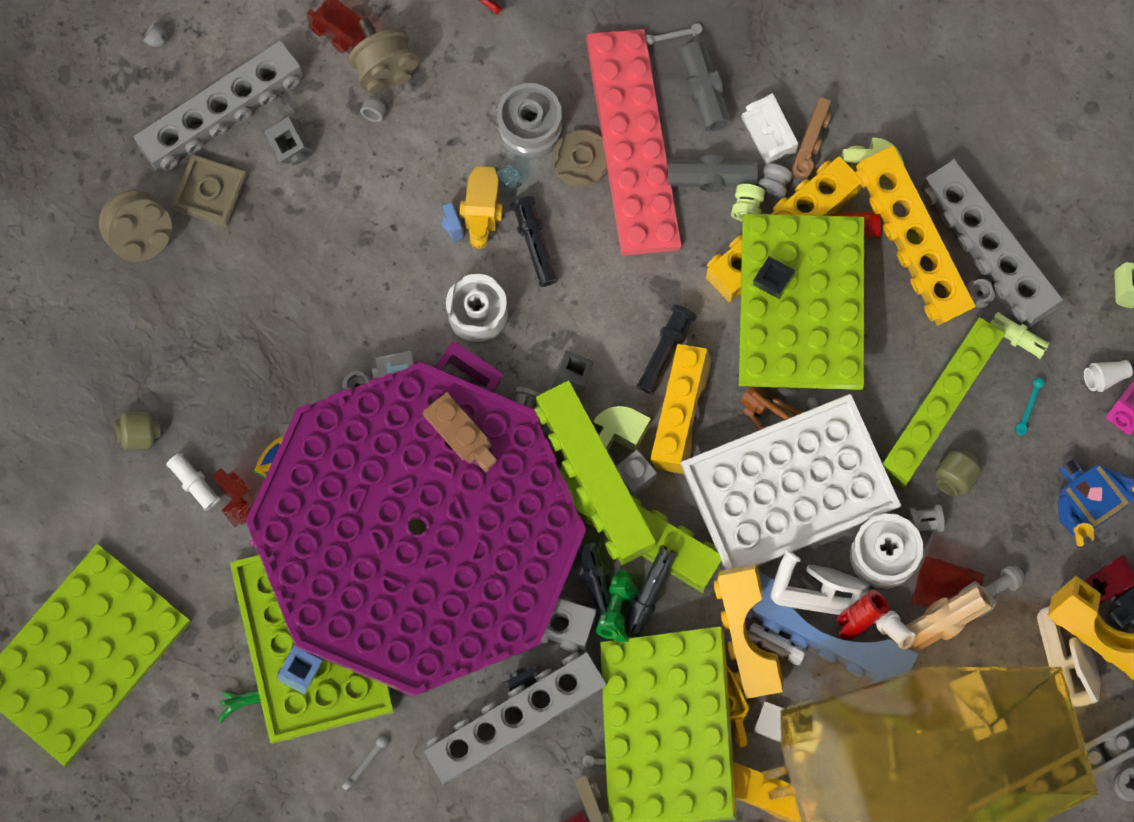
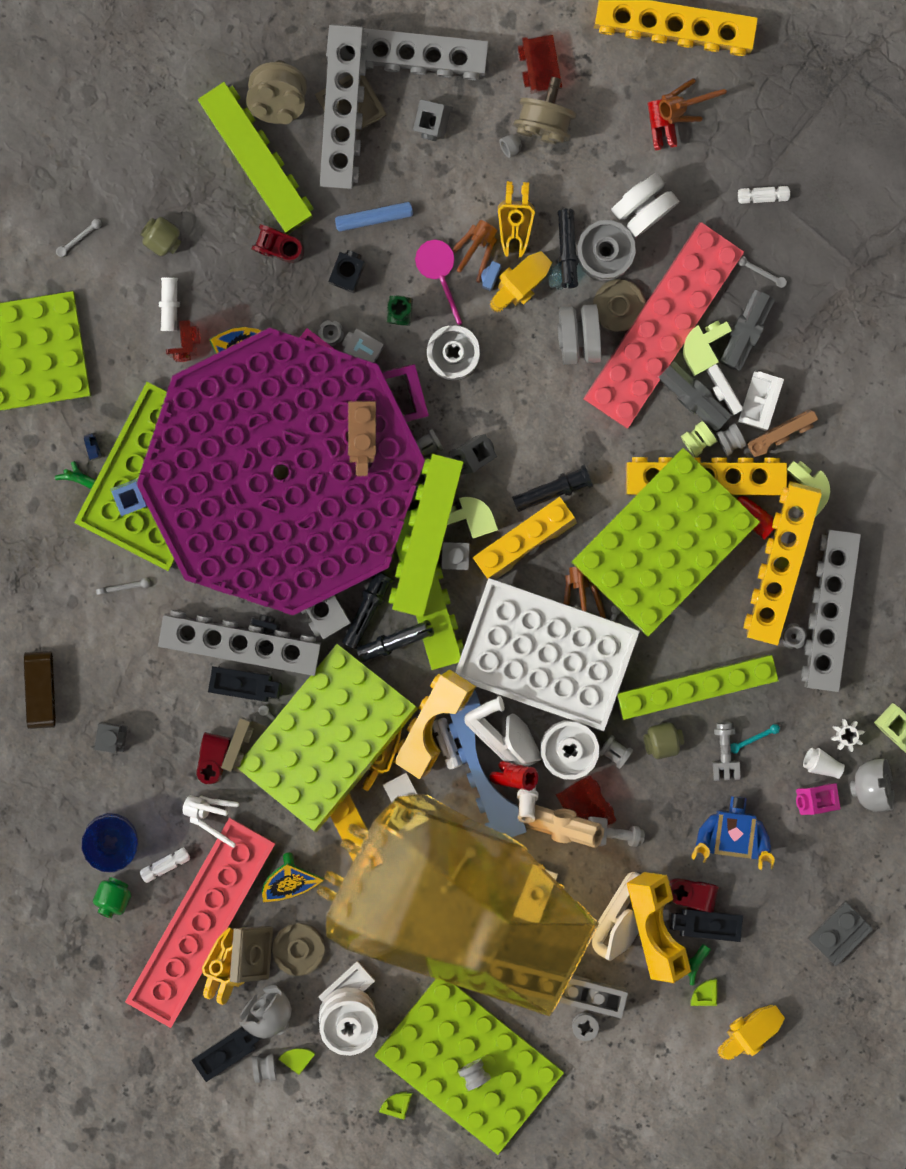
camera: 30 degrees right, 15 degrees up
(58, 520) = (62, 251): none -> light grey hinge
(150, 131) = (331, 174): none -> light grey brick
(164, 297) = (255, 158): none -> lime brick
(231, 663) = (92, 447): none -> dark blue tile
(244, 351) = (273, 244): none -> dark red piece
(309, 260) = (374, 216): none -> medium blue axle
(329, 333) = (347, 283): none -> black brick
(395, 252) = (436, 261): none -> dark pink piece
(399, 307) = (399, 310): none -> dark green piece
(416, 198) = (482, 234): none -> dark orange plant
(431, 159) = (515, 214): none -> yellow hinge
(504, 150) = (568, 259): none -> black pin
(527, 55) = (644, 204): none -> white wheel
(529, 227) = (539, 326): black pin -> none
(550, 752) = (243, 684): none -> black hinge
(571, 200) = (579, 334): none -> light grey wheel
(611, 623) = (381, 624): green piece -> none
(679, 134) = (696, 347): none -> yellowish green brick
(730, 146) = (723, 390): none -> white plate
(774, 277) = (657, 513): black plate -> none
(1020, 335) = (791, 687): yellowish green pin -> none
(1027, 447) = (725, 729): none -> light grey hinge
(1108, 324) = (853, 739): none -> white gear

